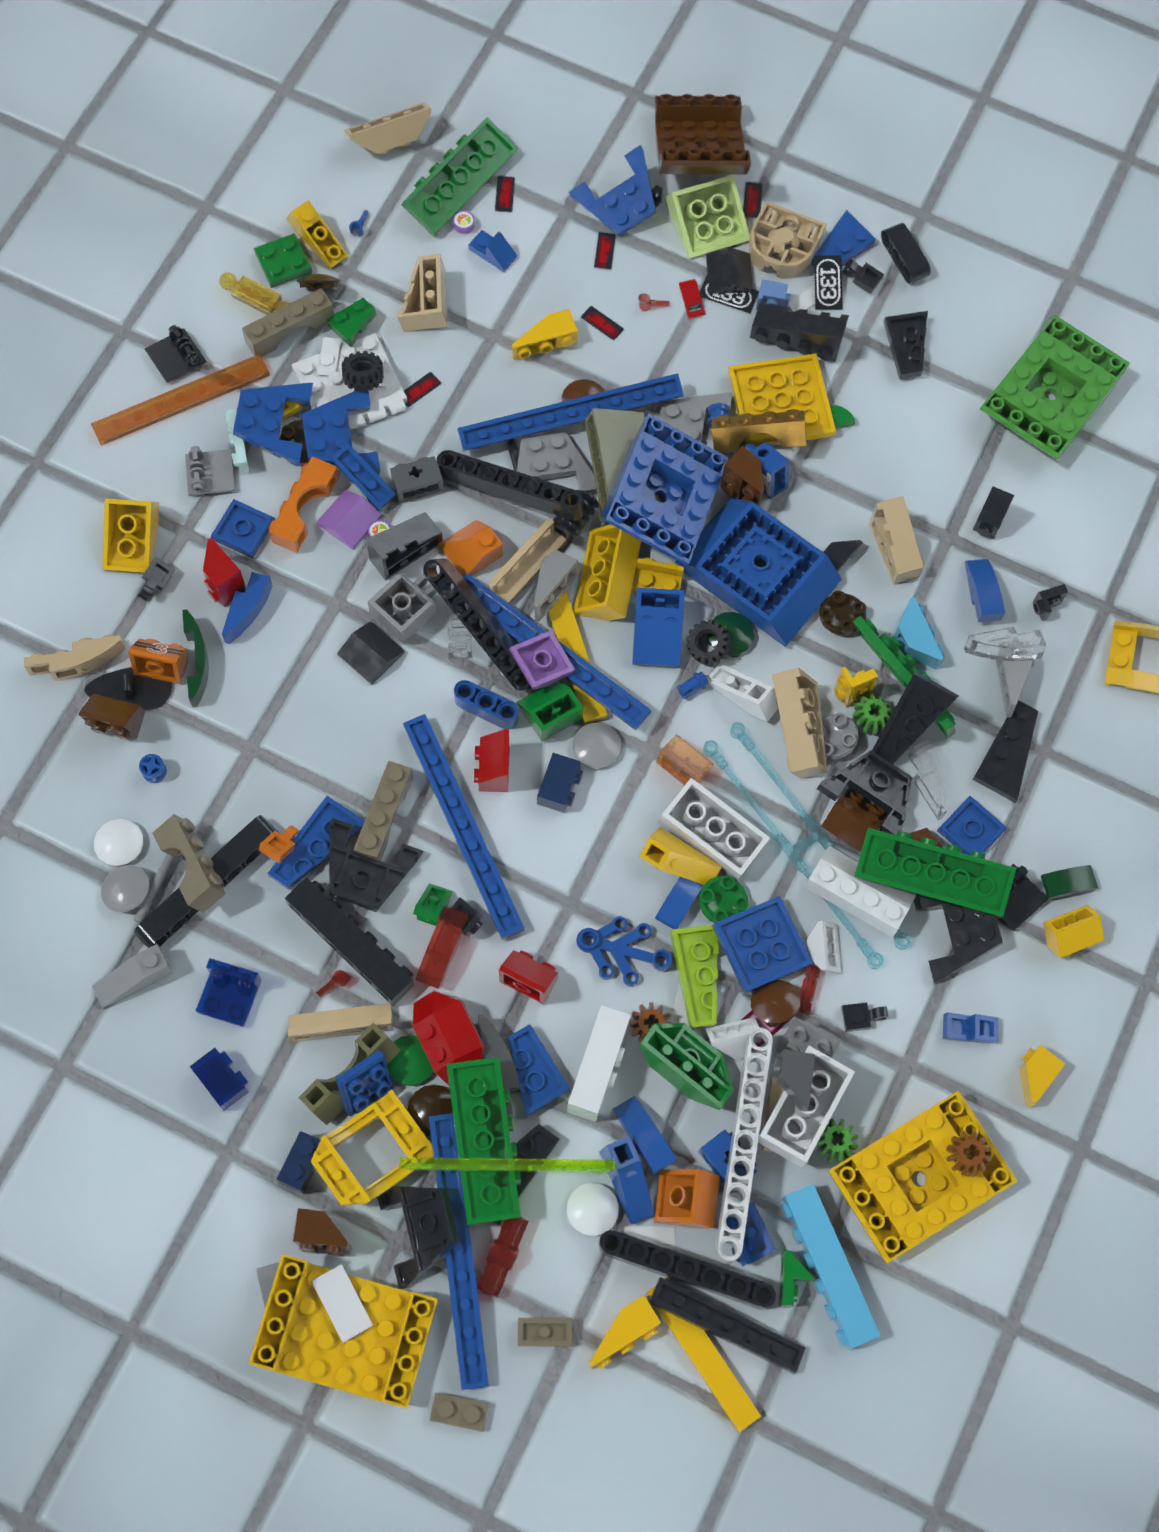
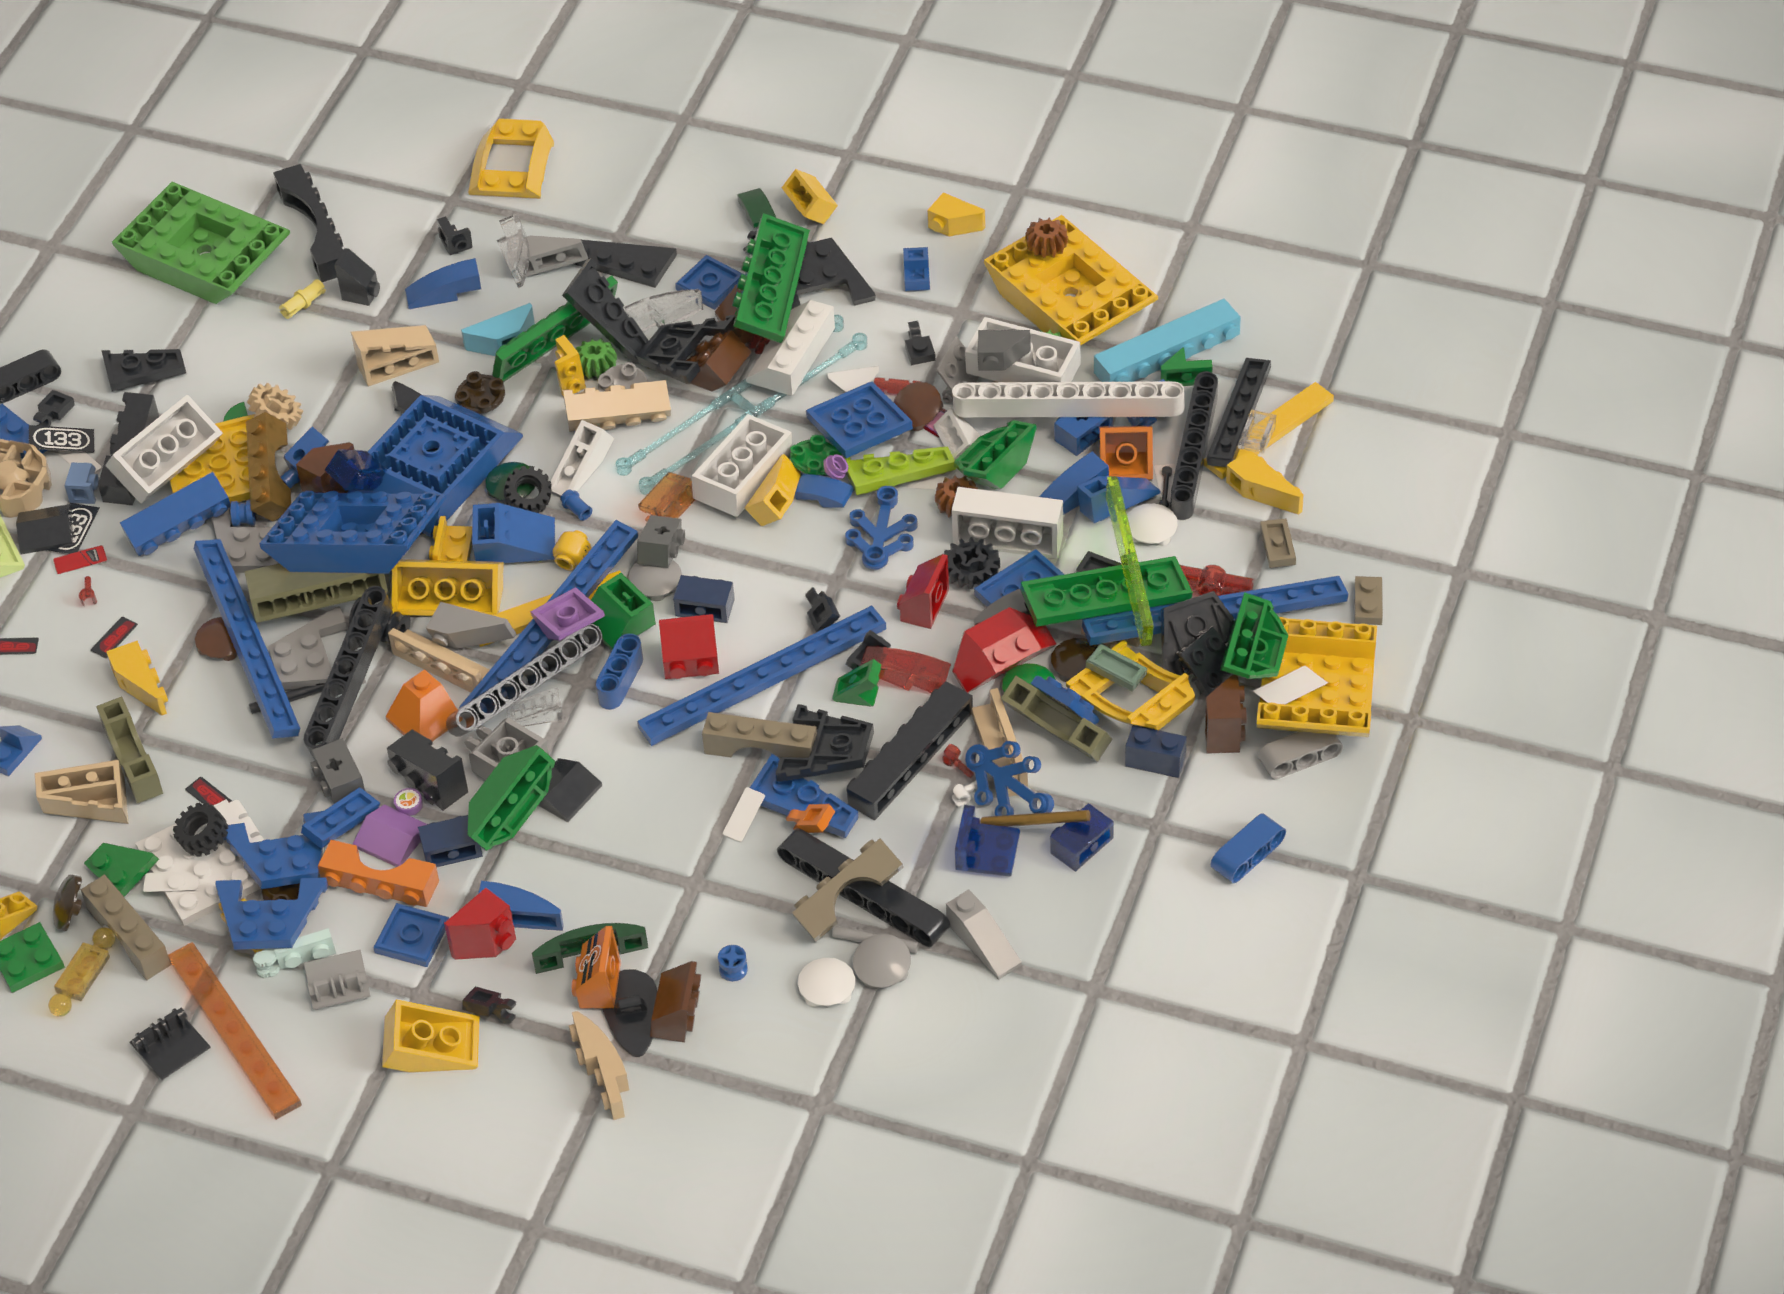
camera: 90 degrees left, 20 degrees down
(175, 1230) = (1248, 848): none -> blue beam
(240, 1038) = (1037, 818): none -> pearl gold bar
(287, 1019) = (1004, 778): none -> blue plant
(295, 980) = (961, 793): none -> white hand
(308, 793) = (743, 814): none -> white sticker
(325, 559) = (448, 842): none -> dark blue brick
(341, 594) = (509, 796): none -> green wedge
(385, 1271) = (1255, 640): none -> green wedge
(389, 1230) = (1205, 661): none -> black hinge
(399, 1139) = (1116, 667): none -> sand green tile
(440, 334) = (129, 750): none -> olive arch
(527, 883) = (823, 610): none -> black plate
(573, 1032) = (972, 562): none -> black gear
(635, 676) = (571, 549): none -> yellow head
(640, 749) = (660, 541): none -> dark grey brick
(661, 1237) = (1166, 472): none -> black hinge
(699, 920) = (835, 466): none -> medium lavender plate
(703, 1341) = (1257, 431): none -> clear slope
(717, 362) = (176, 514): none -> blue brick
(728, 493) = (356, 470): none -> clear blue brick
(781, 347) = (163, 449): none -> white brick
(835, 433) = (275, 403): none -> tan gear
(979, 471) = (302, 299): none -> light yellow pin
(1037, 493) = (297, 192): none -> black arch

